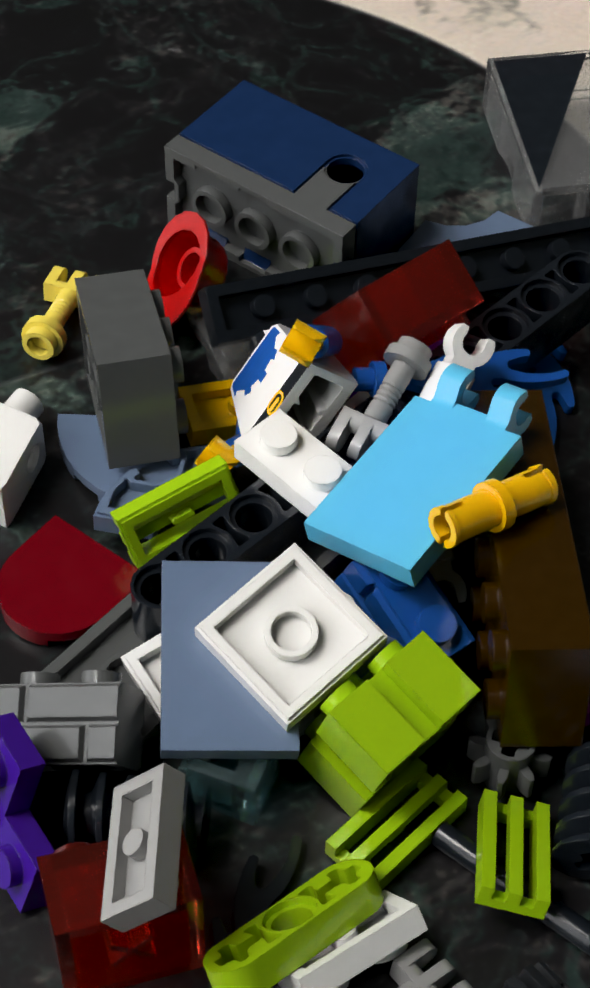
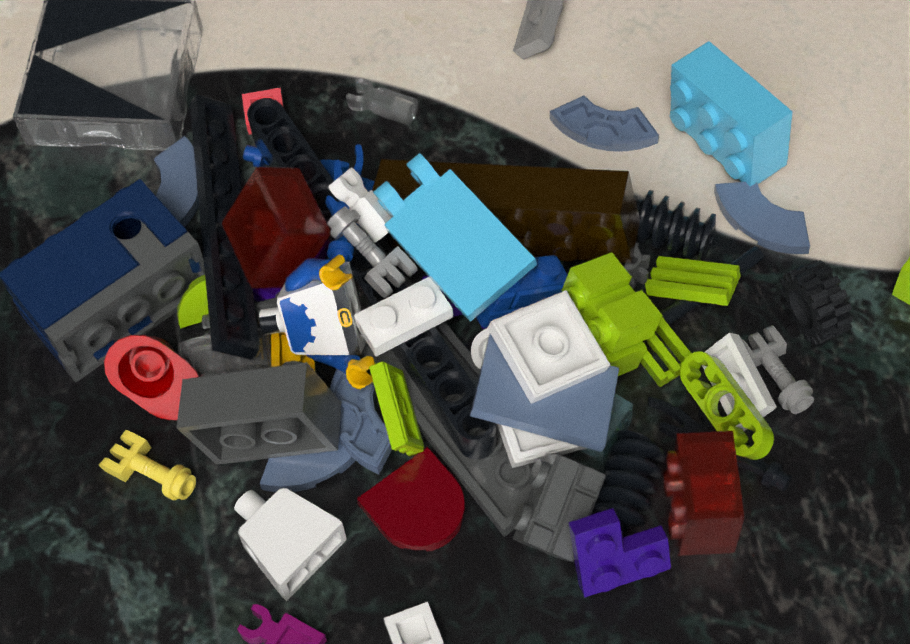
camera: 70 degrees left, 10 degrees up
(143, 848) = (706, 448): light grey plate -> none
(492, 506) = (503, 198): yellow pin -> none

